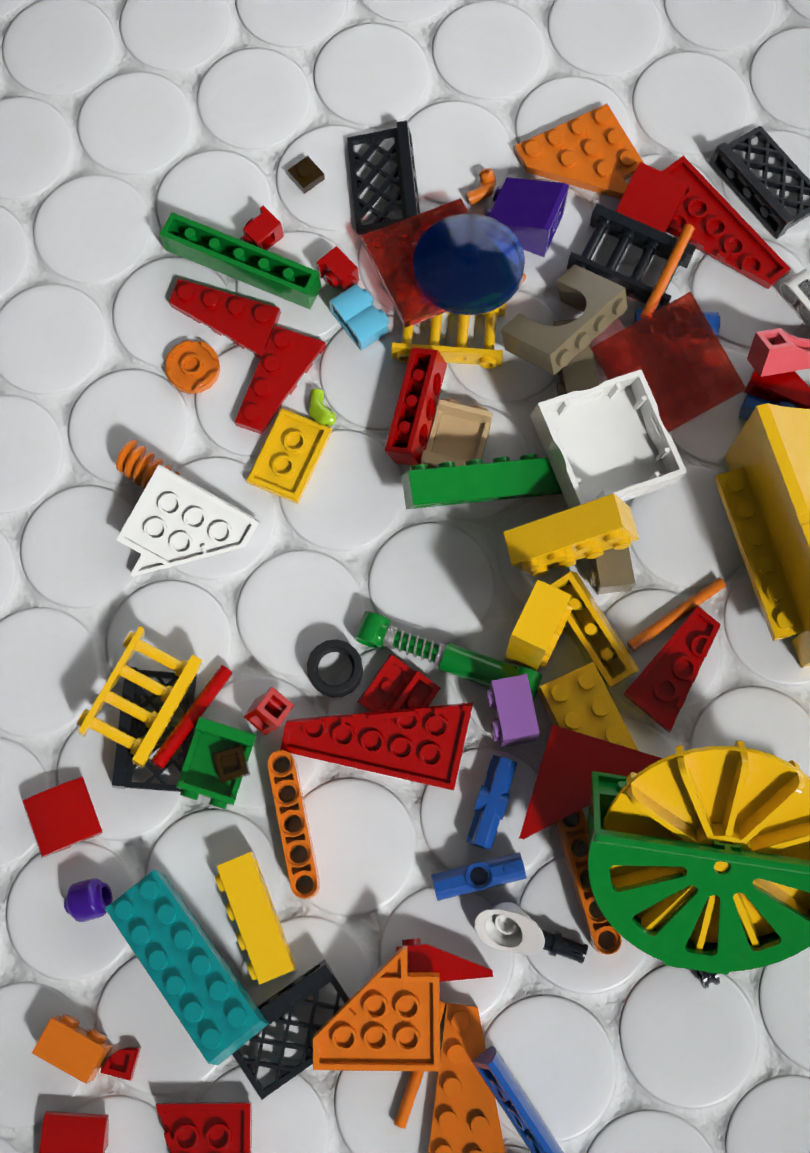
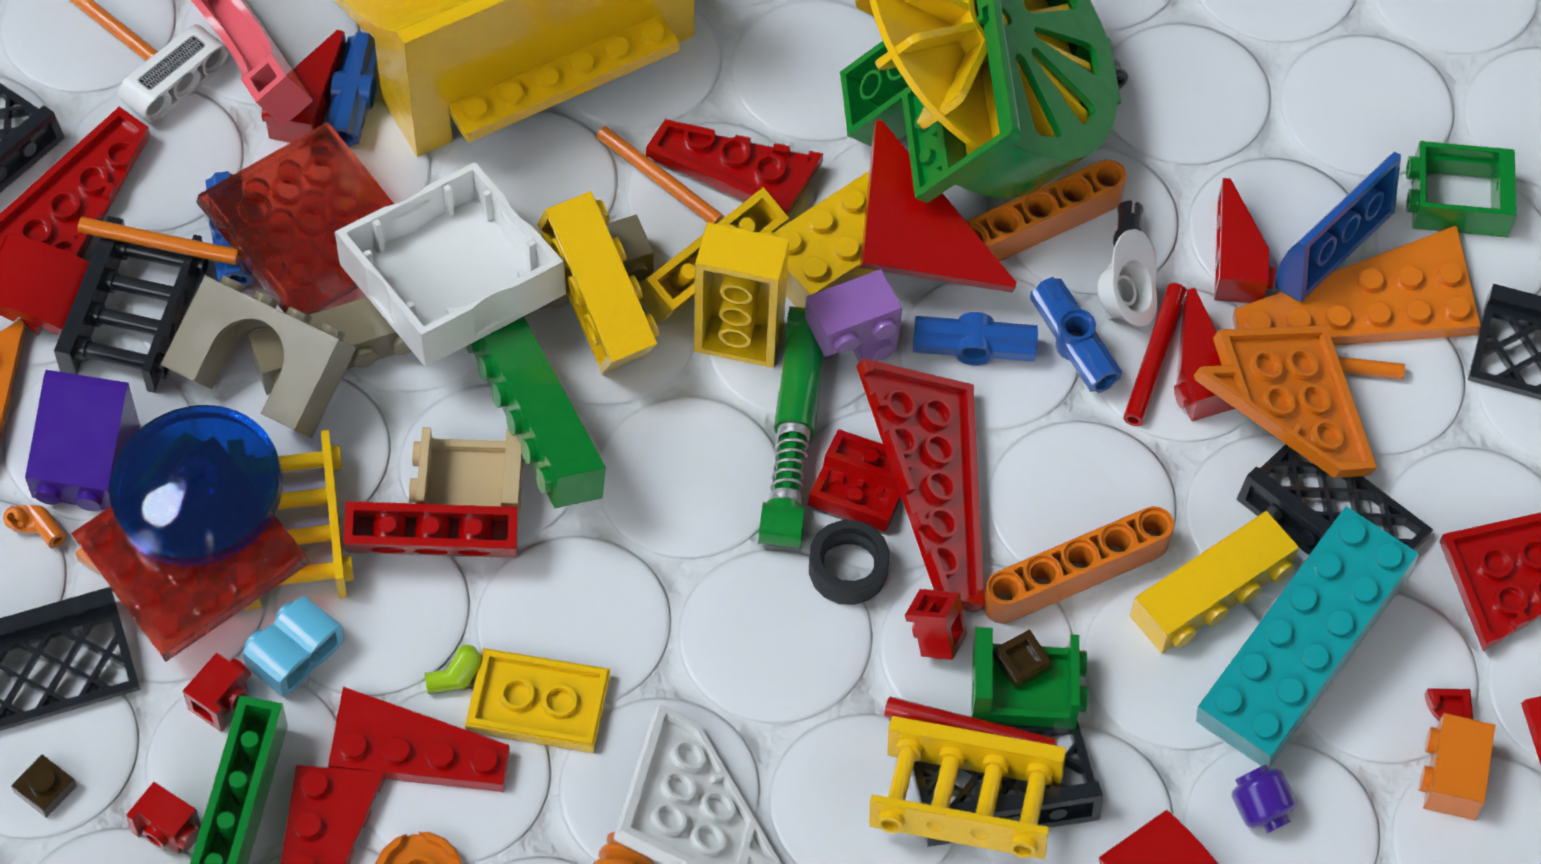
camera: 110 degrees left, 15 degrees down
(455, 935) = (1155, 354): none -> red piece
(524, 1027) = (1241, 251): none -> red slope

